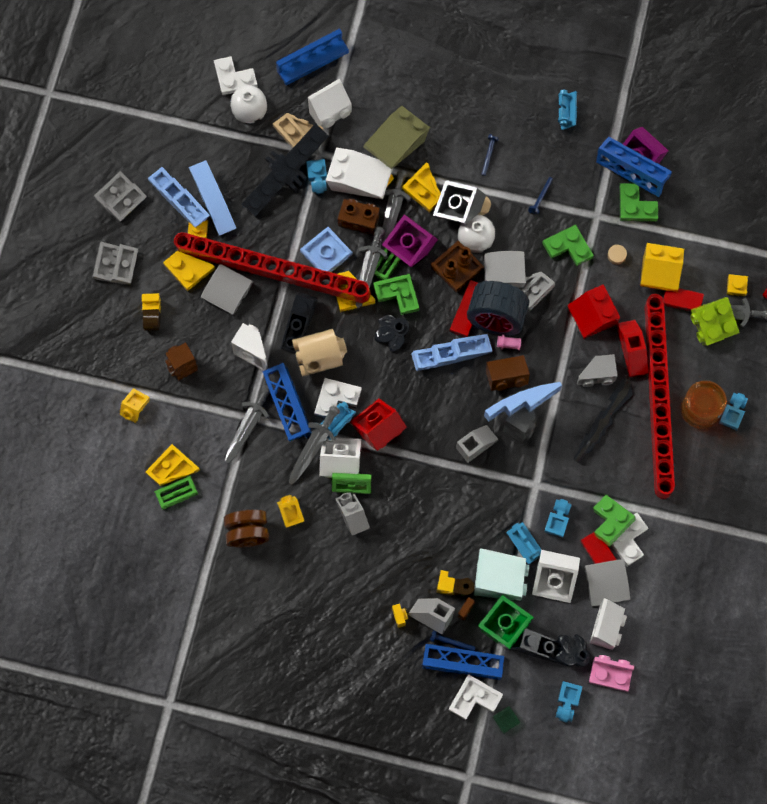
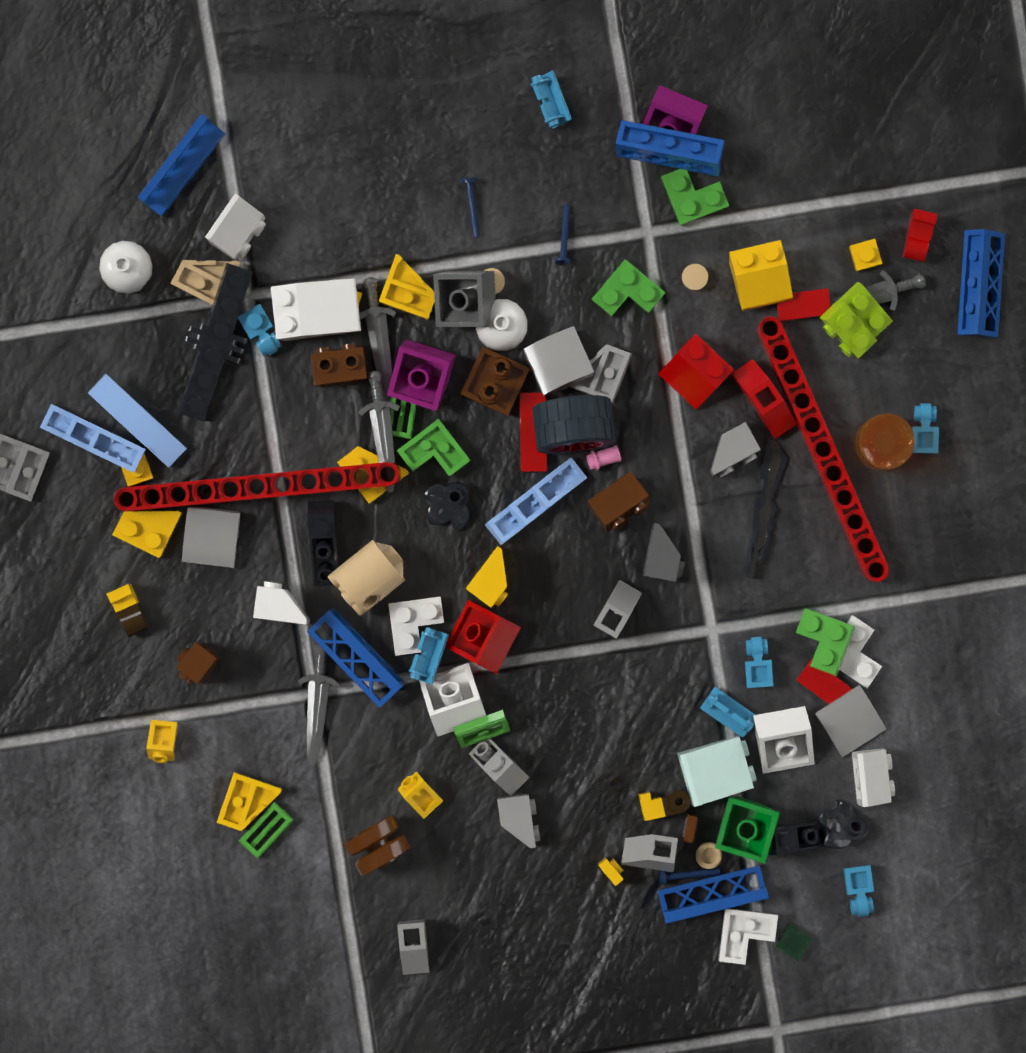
camera: 20 degrees left, 15 degrees up
(115, 263) = (50, 561): light grey slope -> none
(231, 80) = (84, 241): white plate -> none
(240, 609) = (413, 946): none -> light grey slope
(314, 443) = (415, 691): dark grey sword -> none
(326, 251) = (316, 430): light blue tile -> none
(350, 551) = (516, 818): none -> light grey slope
(397, 137) = (344, 238): olive slope -> none
(398, 386) = (490, 580): none -> yellow slope
(471, 634) = (708, 855): none -> tan tile
(529, 398) = (665, 537): light blue slope -> none
(611, 673) = (898, 833): bright pink bracket -> none

